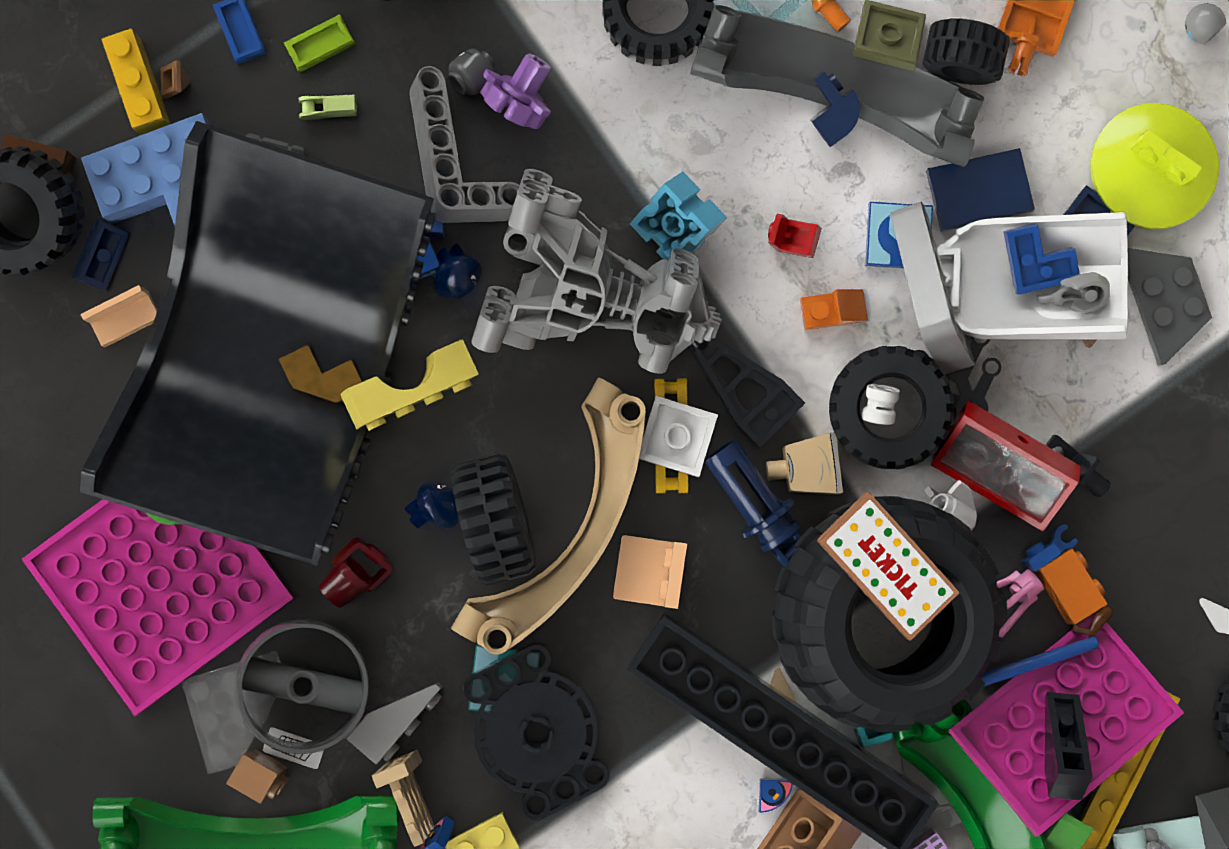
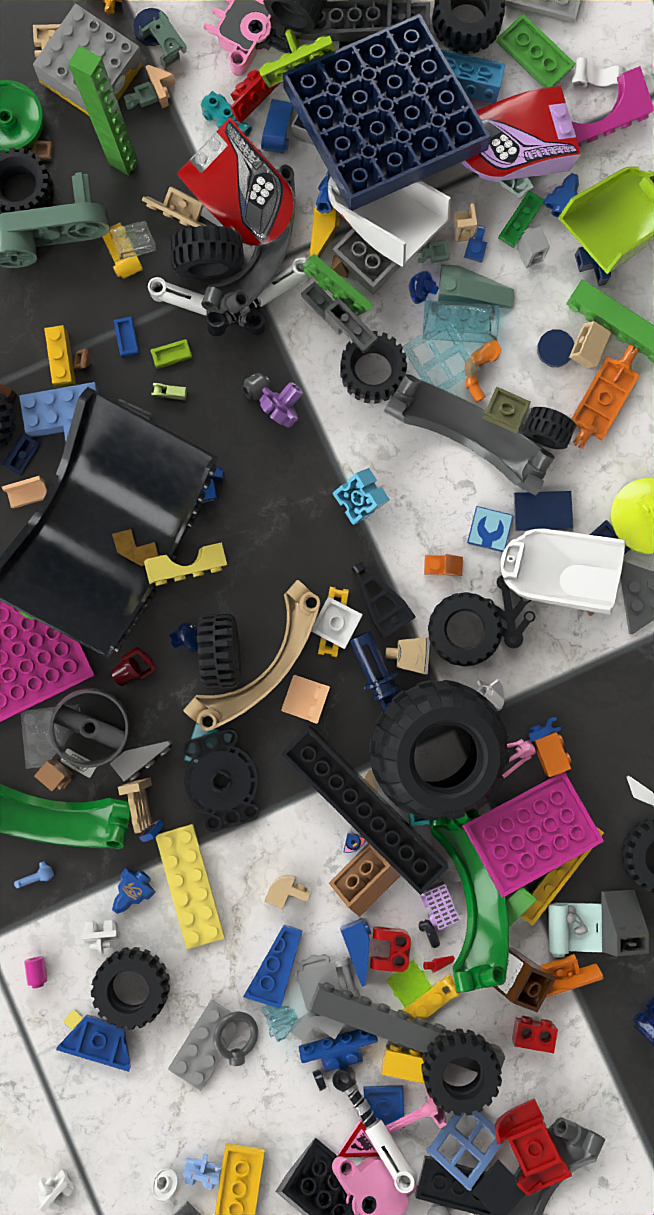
camera: 15 degrees right, 0 degrees up
(446, 159) = (231, 435): light grey beam -> none
(457, 274) = (226, 503): clear blue piece -> none
(578, 282) = (294, 521): light grey connector -> none
(794, 236) = (427, 518): red bracket -> none
(842, 113) = (469, 451): dark blue brick -> none
(880, 404) = (458, 626): white wheel -> none
(888, 566) = (442, 721): tile -> none
(929, 290) = (499, 565): light grey beam -> none
(1006, 466) = (526, 676): brick -> none
(1030, 267) = (564, 563): blue plate -> none
(1040, 660) = (523, 794): blue bar -> none
(1066, 747) = (529, 848): black slope -> none
(1086, 291) = (593, 581): light grey piece -> none
(1088, 475) = (568, 684): black bracket -> none
(1098, 622) = (564, 777): reddish brown piece -> none

